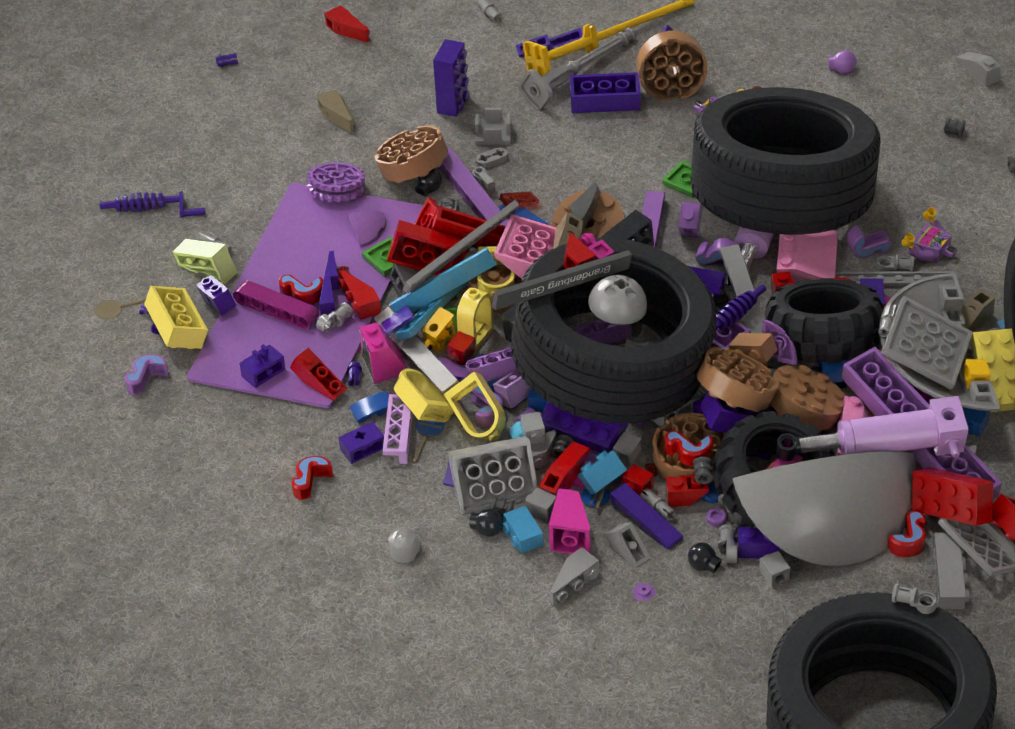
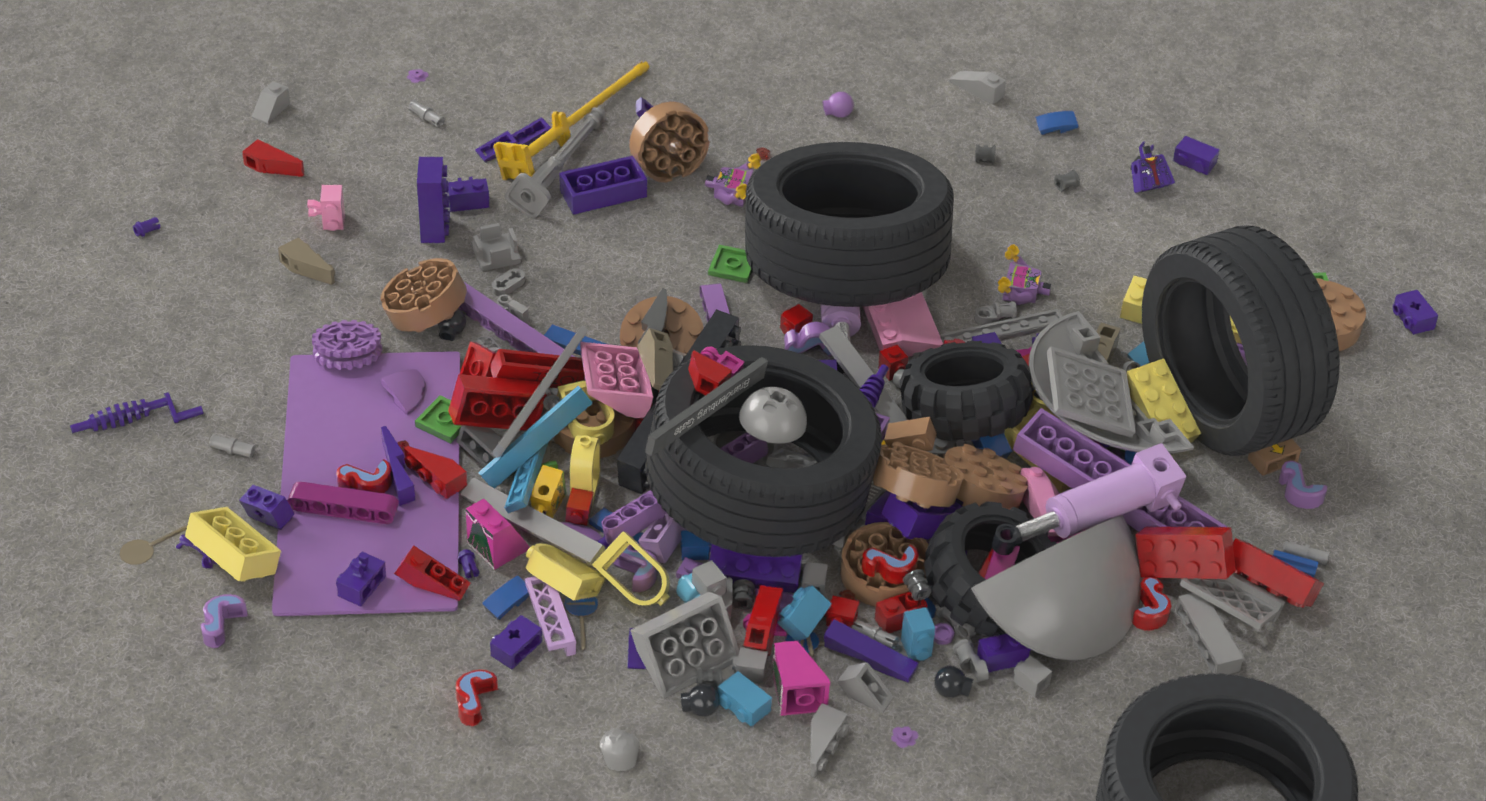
camera: 25 degrees left, 0 degrees up
(207, 258) = (233, 465): yellowish green wedge -> none
(327, 322) = (421, 503): light grey connector -> none
(373, 70) = (330, 207): none -> bright pink brick
(397, 320) = (498, 489): dark purple piece -> none
(490, 80) = (468, 194): none -> dark purple brick
(524, 199) = (563, 323): clear red tile -> none
(689, 511) = (918, 634): none -> dark azure brick
(690, 219) = (765, 307): medium lavender torso -> none
(713, 232) = (795, 319): none -> red brick
(785, 348) = (945, 429): medium lavender brick -> none
(866, 245) = (958, 297): medium lavender animal -> none
(886, 319) = (1042, 376): light grey axle -> none
(914, 597) = (1226, 673): light grey connector -> none
(976, 371) = (1149, 412): yellow brick -> none

